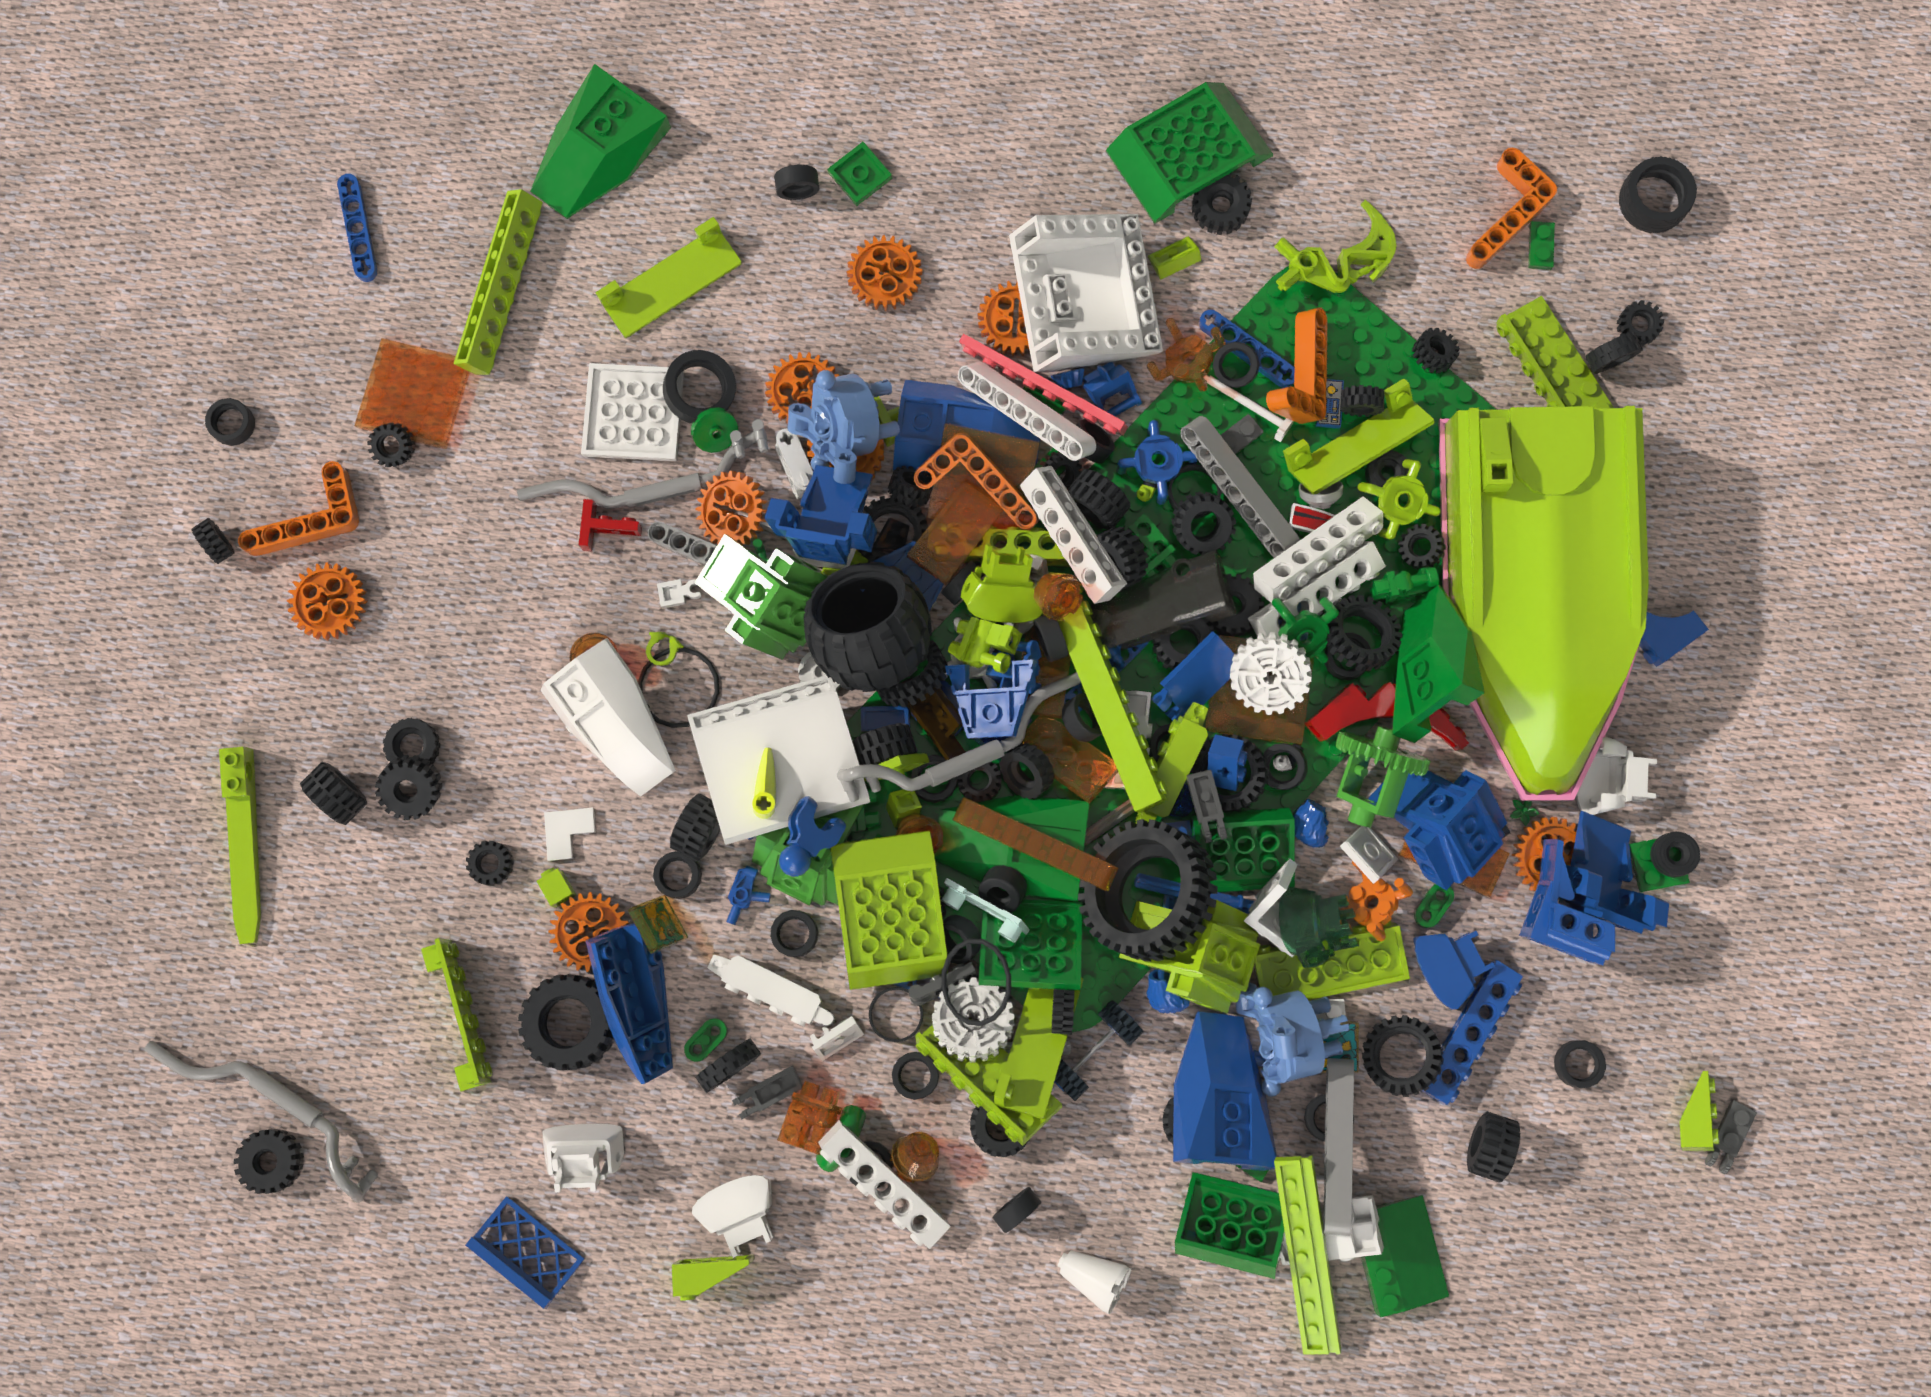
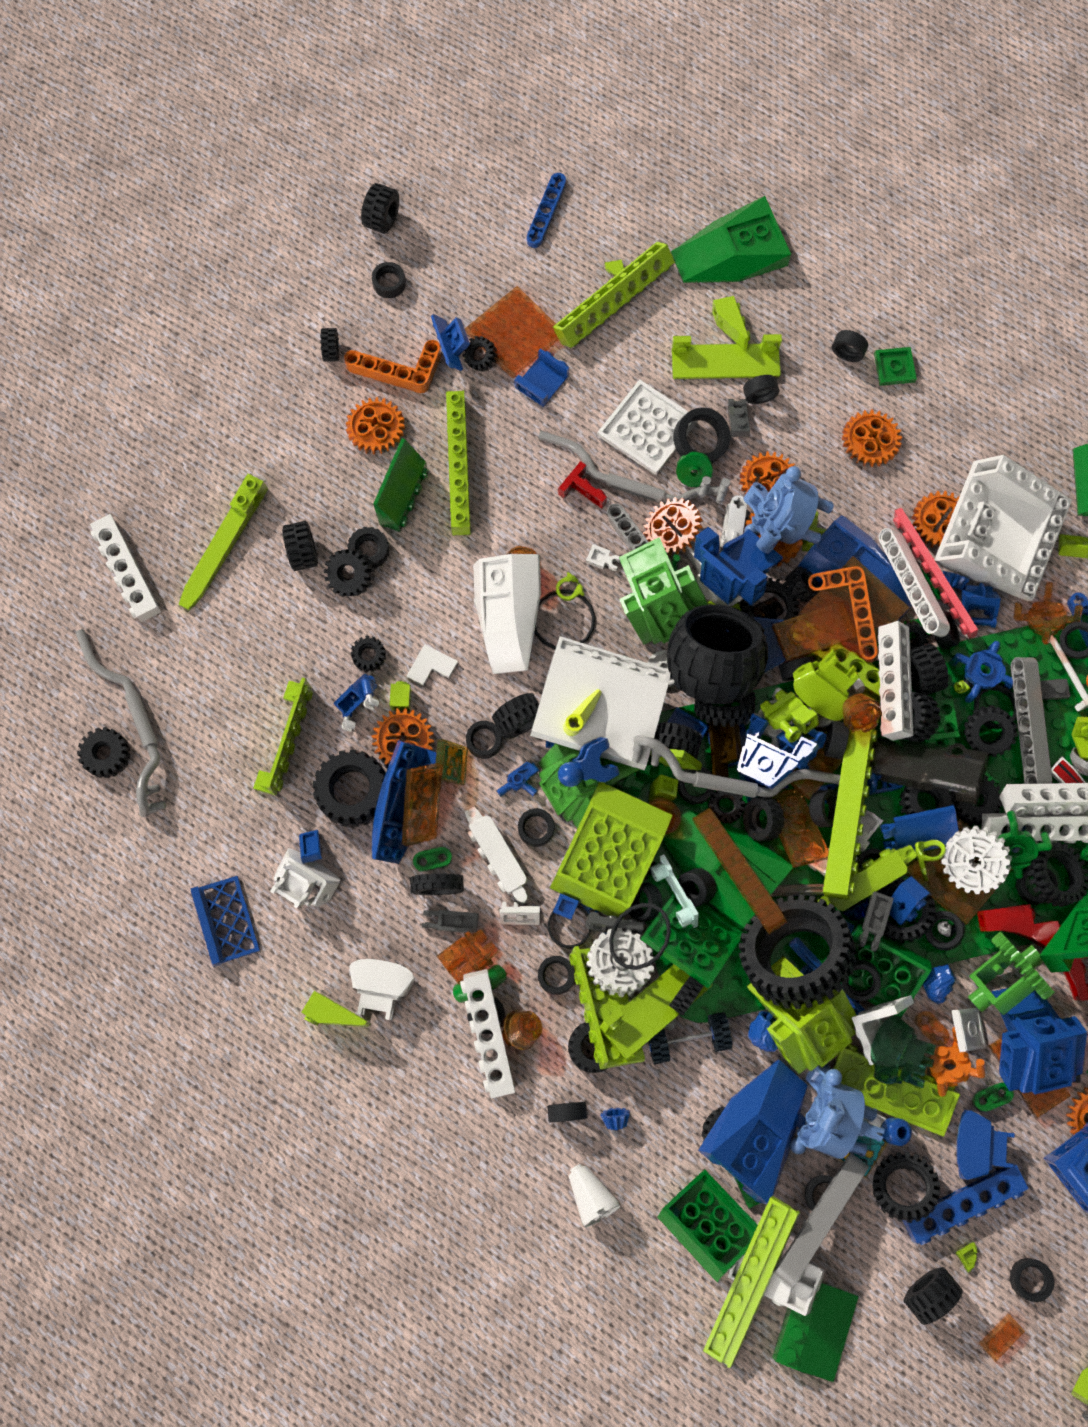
camera: 30 degrees right, 5 degrees down
(100, 908) = (101, 531): none -> white brick
(164, 345) = (380, 208): none -> black tyre
(349, 449) = (452, 340): none -> blue bracket
(402, 655) = (400, 487): none -> green slope
(448, 585) = (458, 463): none -> lime brick
(478, 248) = (614, 267): none -> lime tile
(480, 428) = (542, 378): none -> blue panel
(505, 922) = (354, 696): none -> blue torso
(565, 1113) = (310, 846): none -> blue tile
(643, 232) = (729, 320): none -> lime slope
(656, 991) = (421, 804): none -> clear orange plate
(726, 340) = (738, 418): none -> dark grey plate
(730, 292) = (761, 389): none -> black tyre
(879, 998) = (565, 906): none -> blue plate
(1070, 1182) = (615, 1118): none -> blue piece
(1211, 702) = (922, 858): none -> lime piece
(1246, 884) = (869, 993): none -> black tyre
(1333, 869) = (928, 1031): none -> clear orange beam
(1359, 1005) = (896, 1131): none -> blue head
(1505, 1082) = (968, 1256): none -> lime tile
(1584, 1140) = (1001, 1337): none -> clear orange plate

